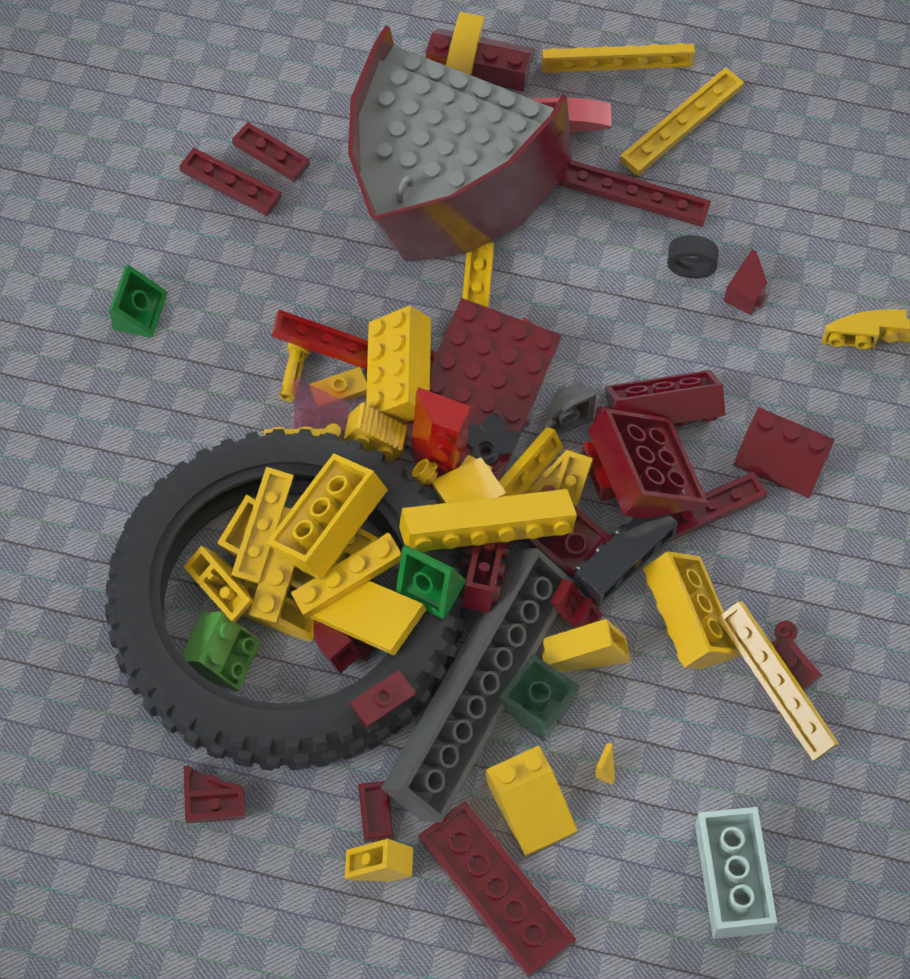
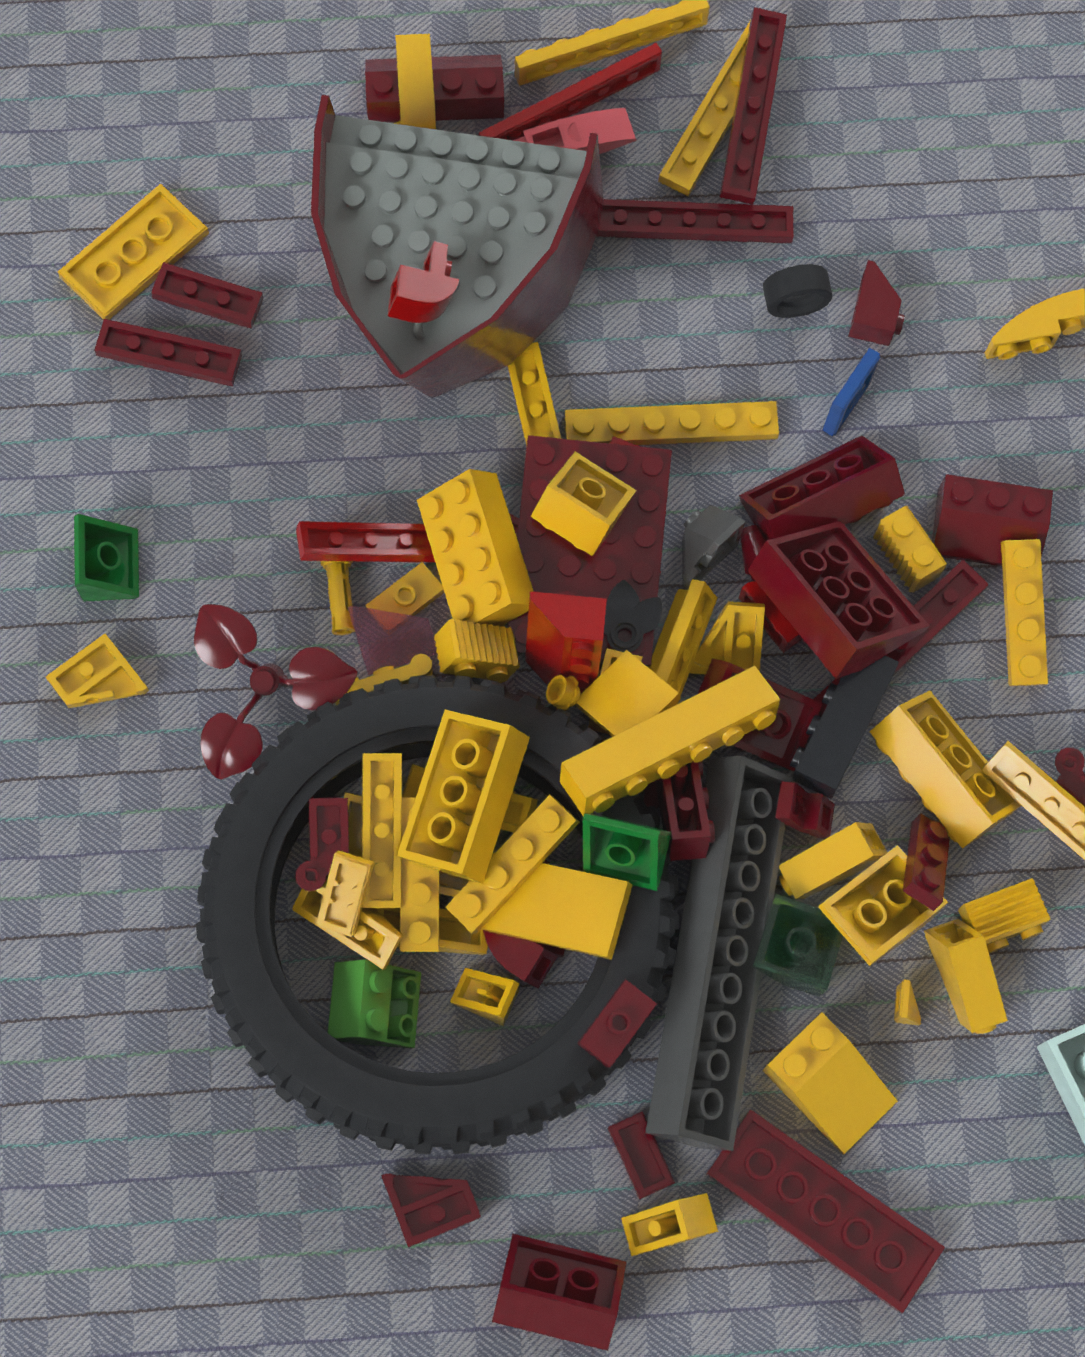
camera: 20 degrees left, 10 degrees up
(103, 379) = (96, 676): none -> yellow wing
(197, 371) = (224, 637): none -> dark red plant
(221, 524) = (327, 835): none -> dark red hinge
(222, 559) = (345, 893): none -> yellow plate
(228, 110) = (132, 252): none -> yellow tile
(282, 884) = (560, 1292): none -> dark red slope
(303, 669) = (486, 995): none -> yellow slope
(408, 169) = (424, 293): none -> brick
(483, 351) = (583, 503): none -> yellow slope
(579, 325) = (675, 423): none -> yellow plate
(591, 86) = (580, 94): none -> red tile
(610, 686) = (875, 910): none -> yellow slope
(652, 665) = (926, 862): none -> dark red plate
(658, 758) = (967, 975): none -> yellow slope
(700, 724) = (1007, 914): none -> yellow brick
(703, 125) = (753, 106): none -> dark red plate
(708, 334) = (851, 392): none -> blue tile
(716, 453) = (909, 549): none -> yellow brick
(787, 520) = (1024, 612): none -> yellow plate

